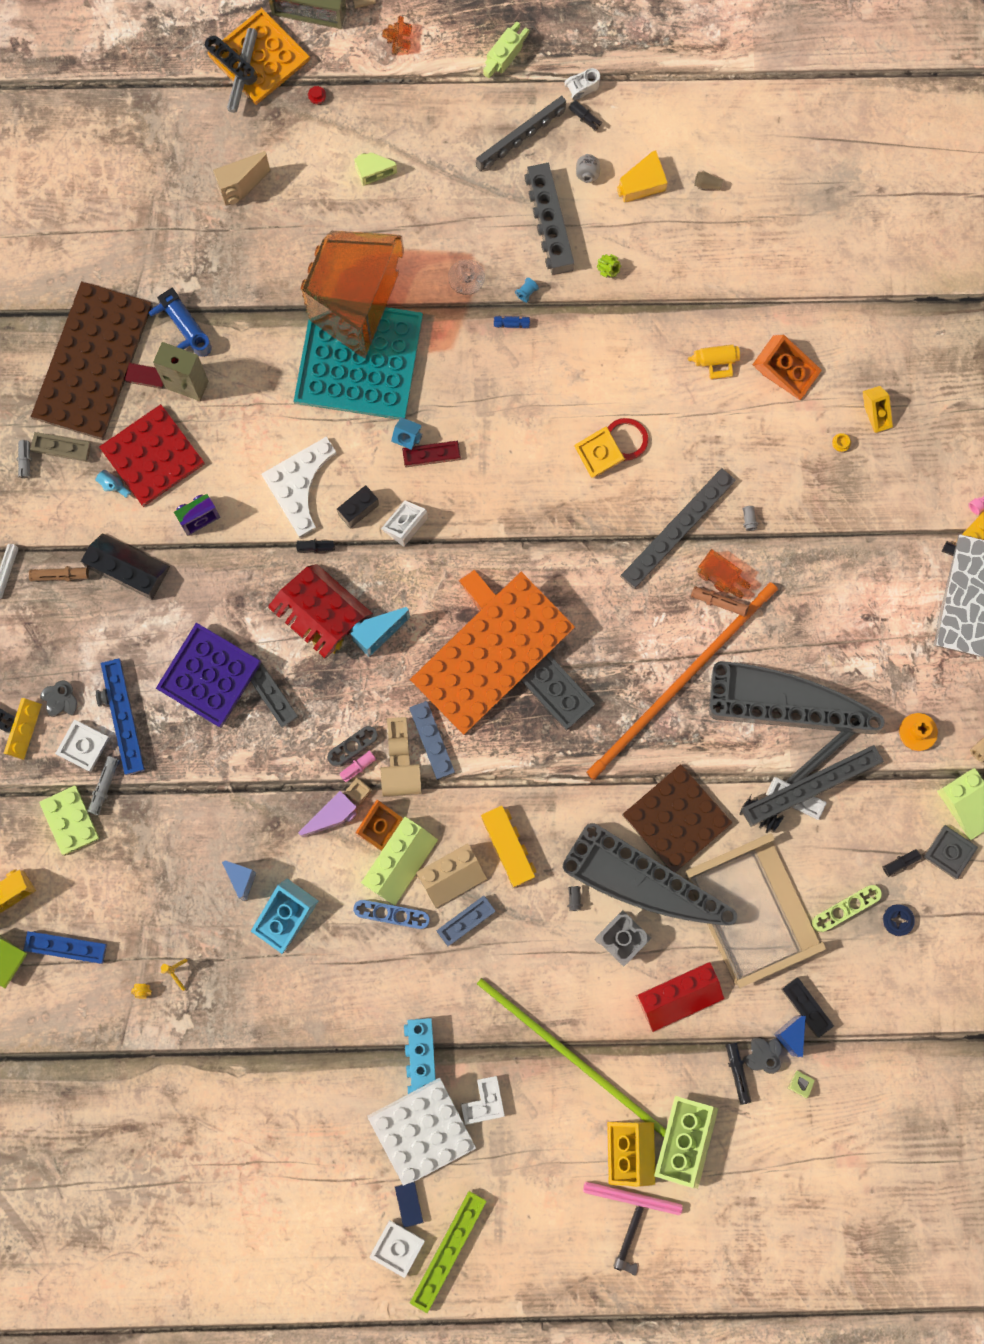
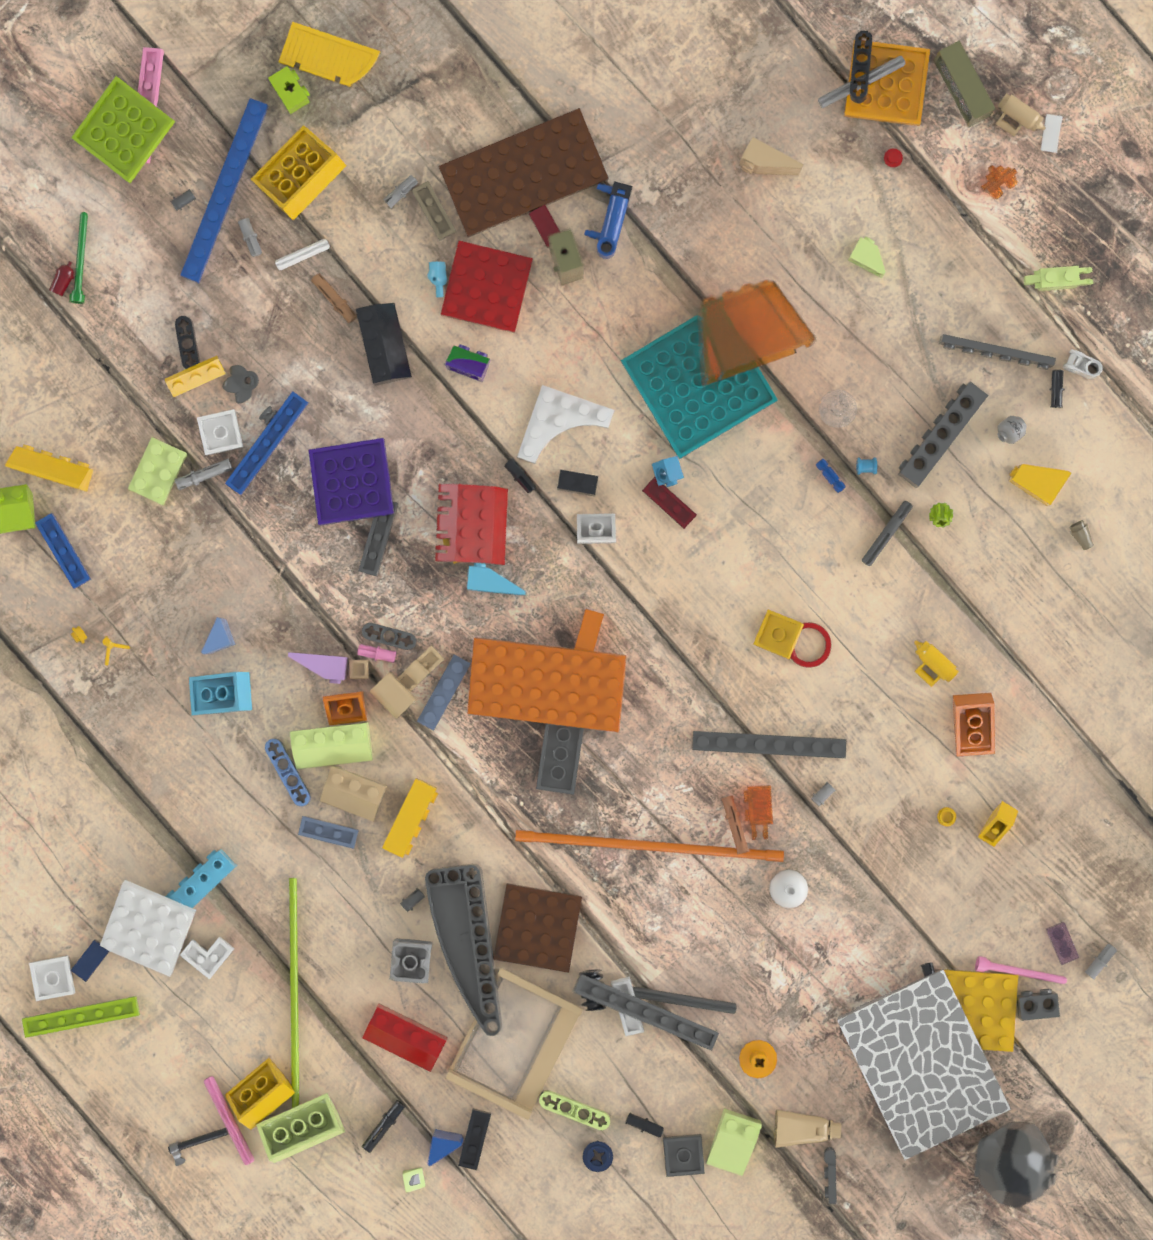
camera: 55 degrees right, 10 degrees up
(589, 315) = (887, 533): none -> dark grey axle
(762, 1053) = (413, 1132): dark grey plate -> none
(772, 690) = (695, 920): dark grey beam -> none
(802, 602) = (788, 888): none -> white cylinder

